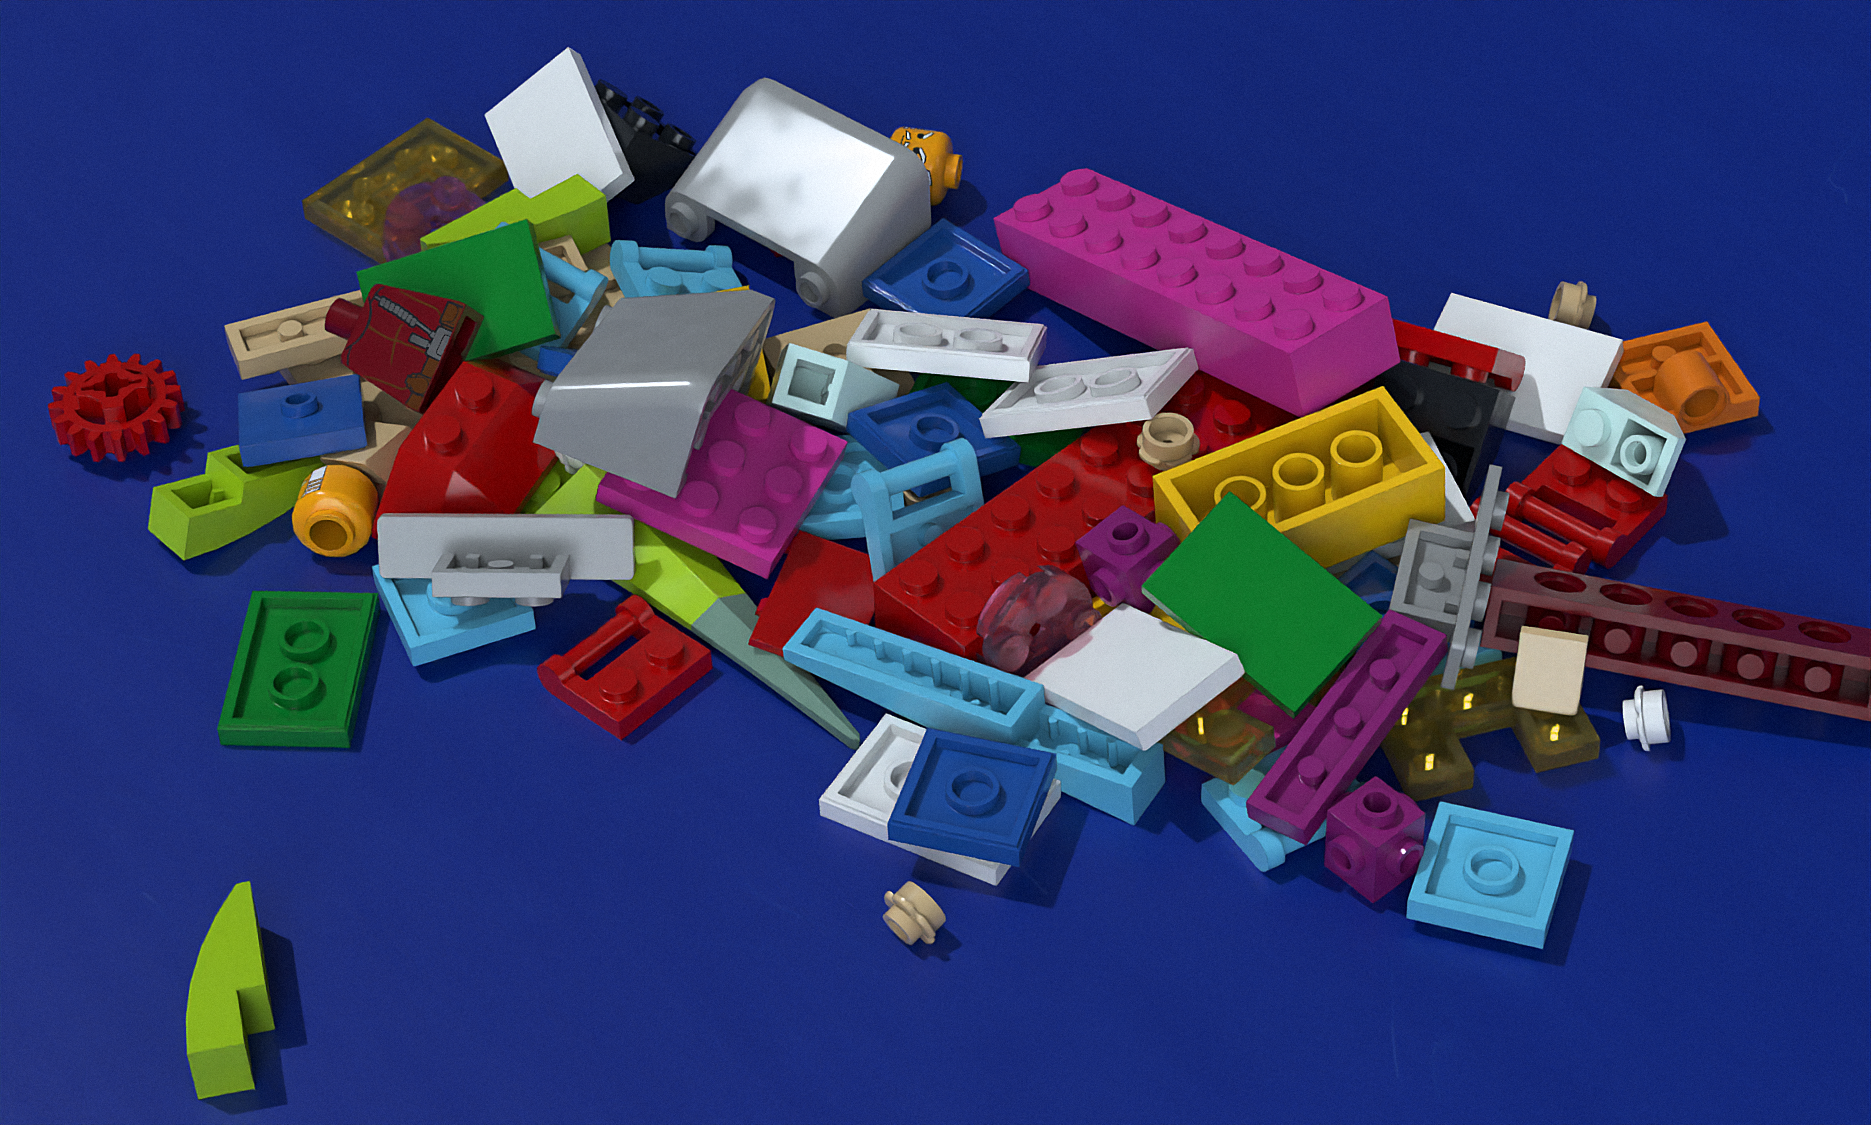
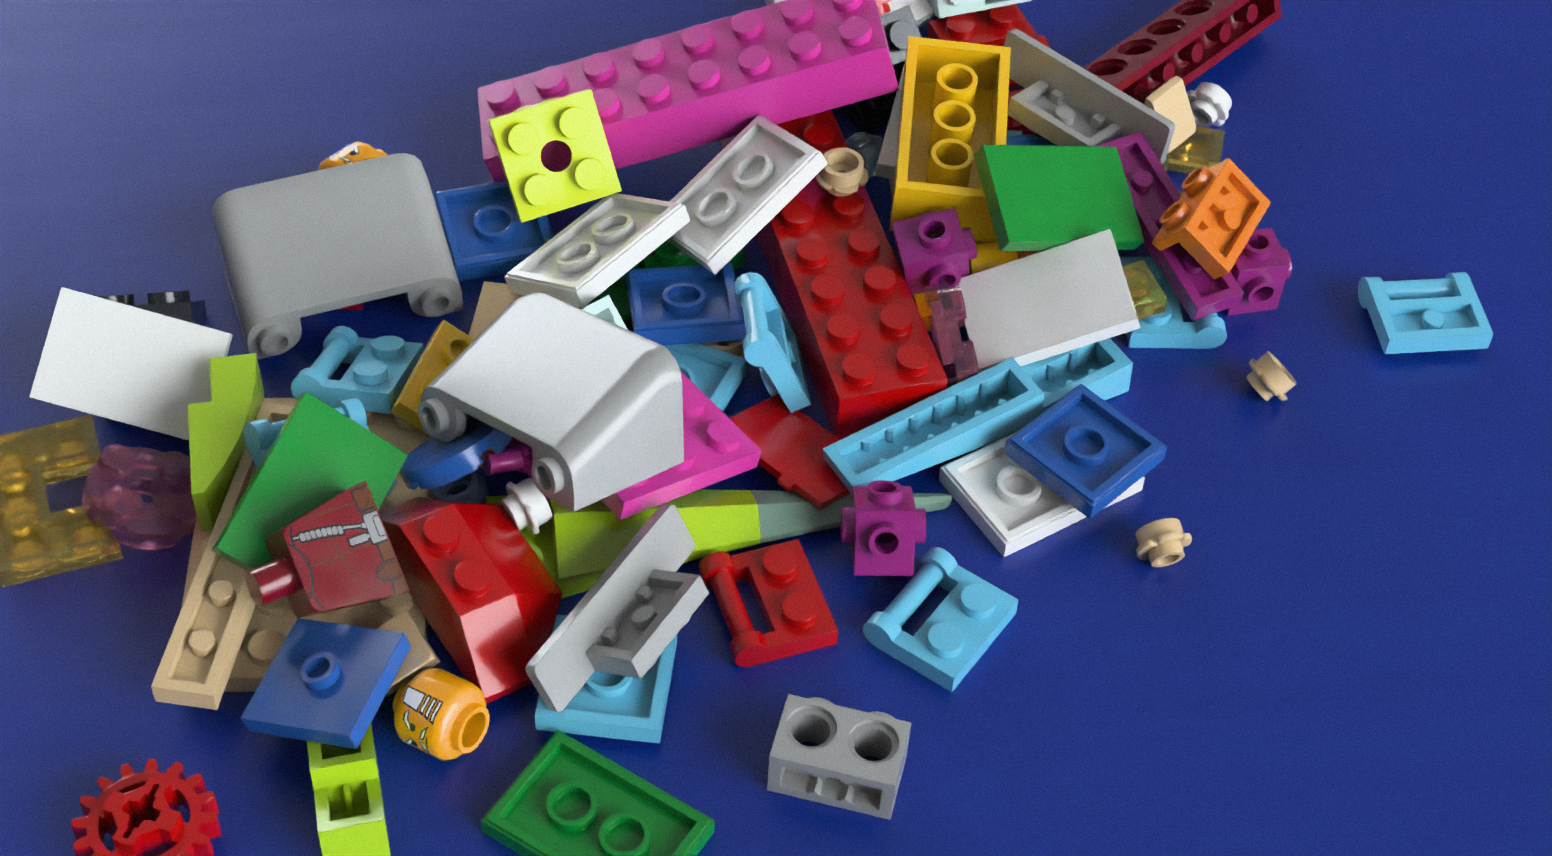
camera: 65 degrees left, 5 degrees up
(467, 778) = (835, 768): none -> light grey brick
(694, 810) = (955, 632): none -> medium azure plate
(747, 692) = (883, 529): none -> magenta brick
(1050, 237) = (528, 129): none -> neon yellow piece
(1229, 917) = (1270, 377): none -> tan plate
(1358, 742) = (1213, 216): none -> orange bracket
(1448, 1033) = (1426, 314): none -> medium azure plate
(1490, 874) = (1317, 235): medium azure plate -> none

